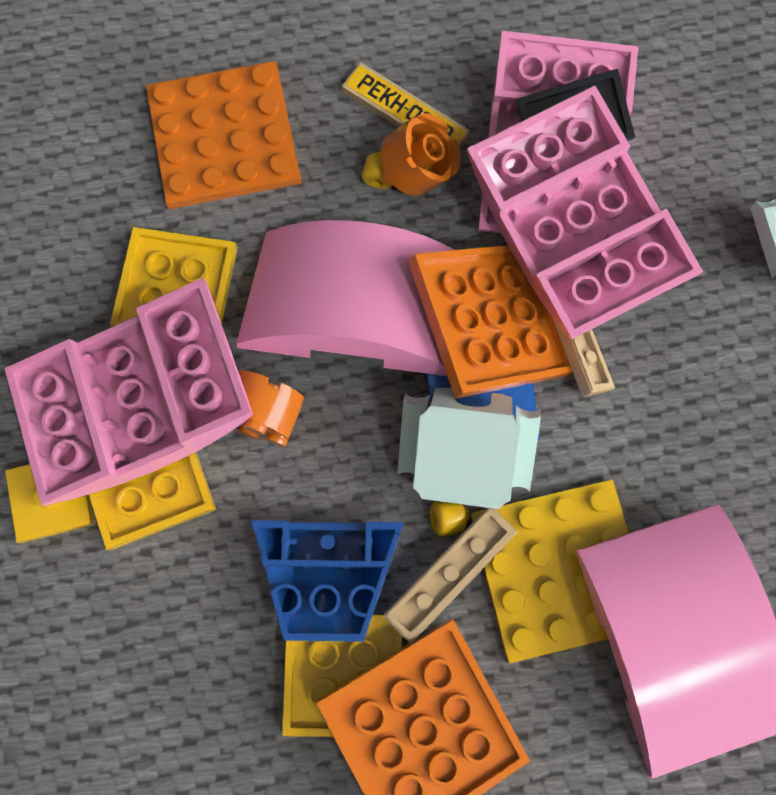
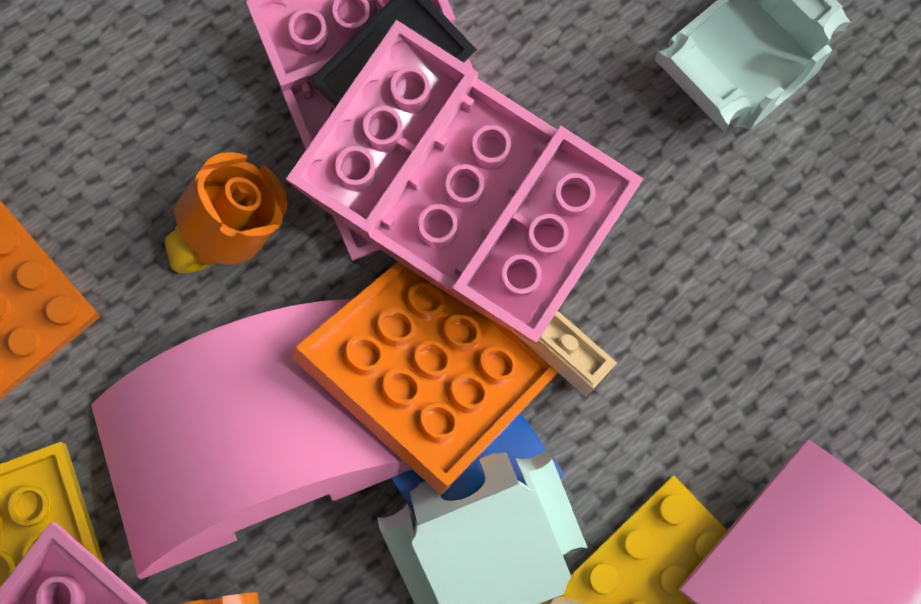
camera: 30 degrees left, 0 degrees up
(393, 101) = (165, 151): tile -> none

